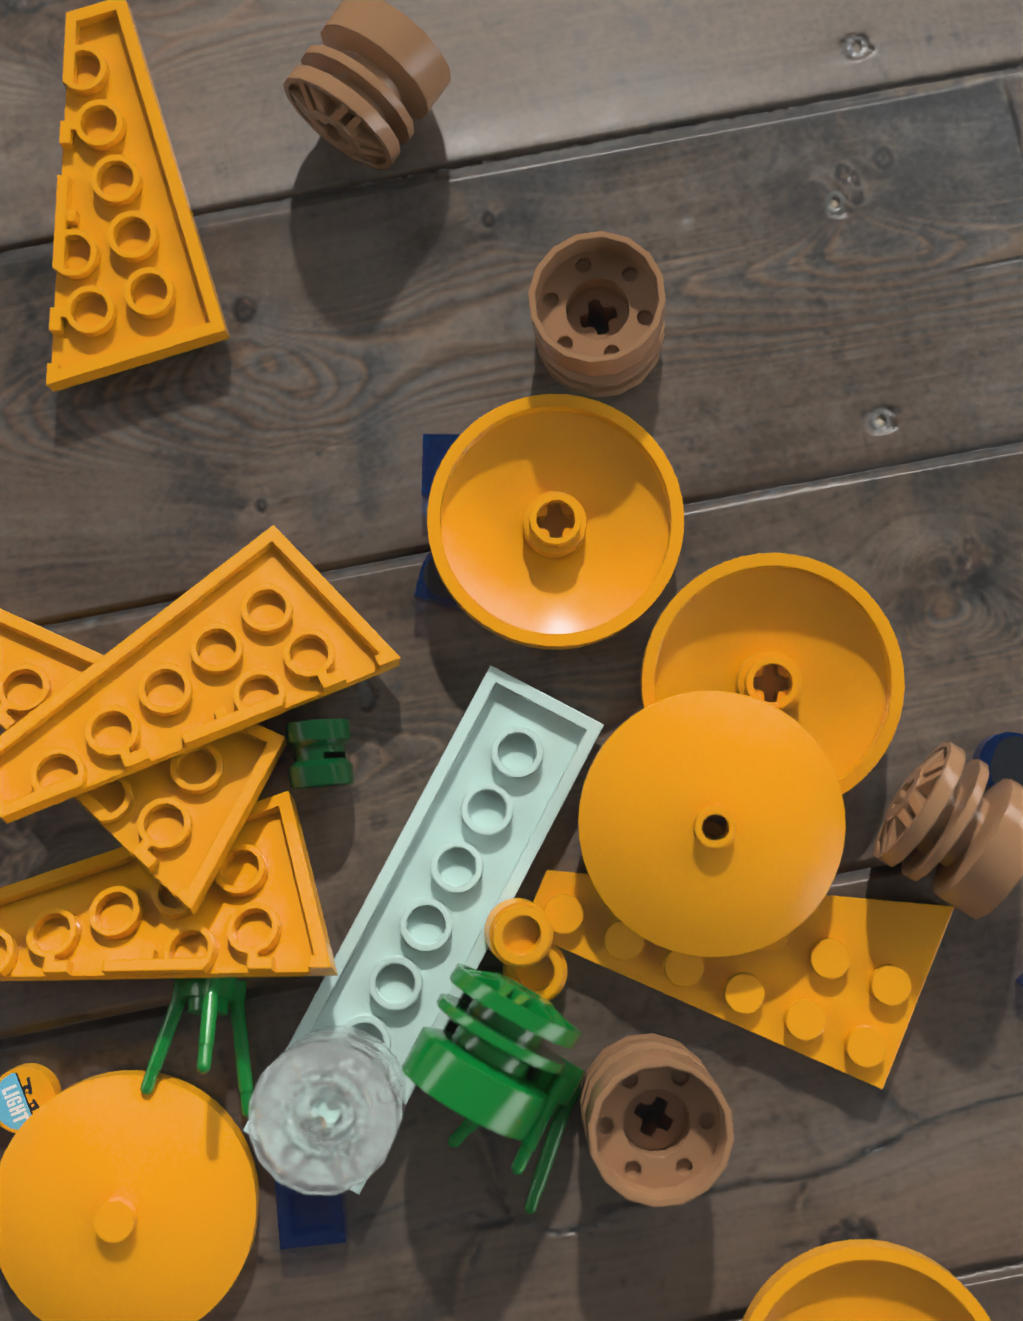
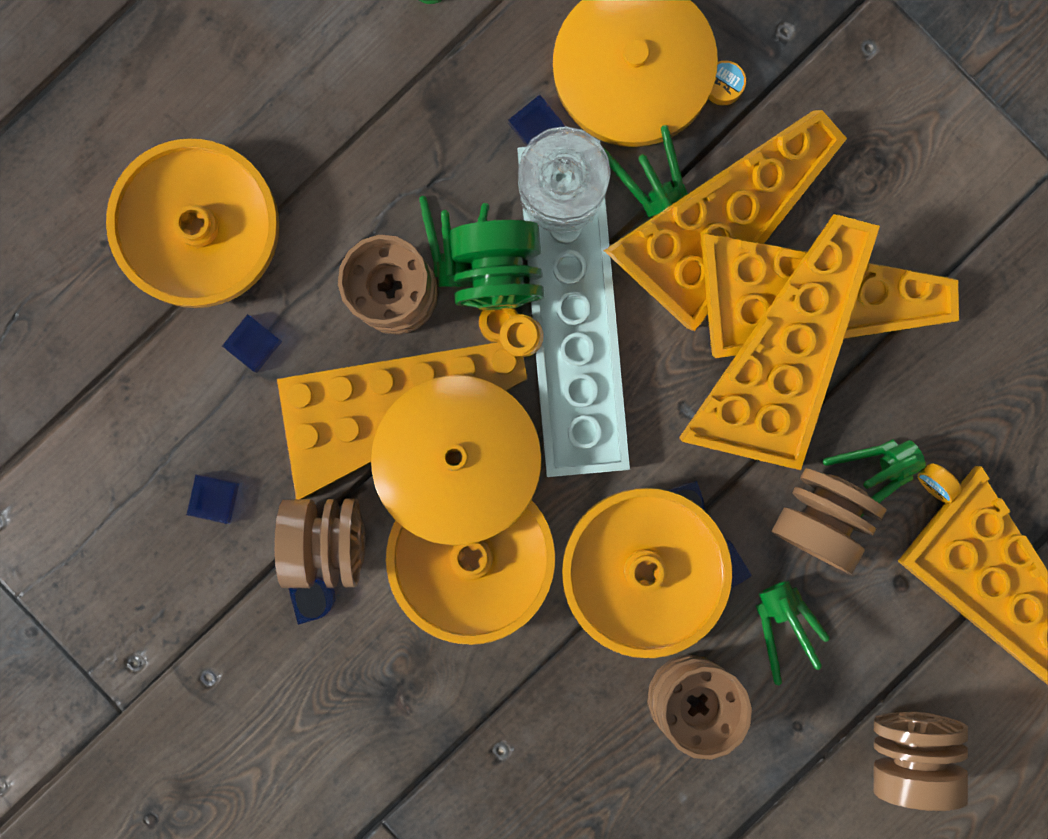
camera: 145 degrees right, 5 degrees up
(111, 398) = (940, 483): none -> light orange tile
(147, 453) = (898, 464): none -> green plant
(280, 438) = (829, 520): none -> medium nougat wheel
(319, 753) = (691, 361): dark green wheel -> none
(409, 378) = (782, 604): none -> green plant
(885, 1160) = (252, 343): none -> clear blue tile

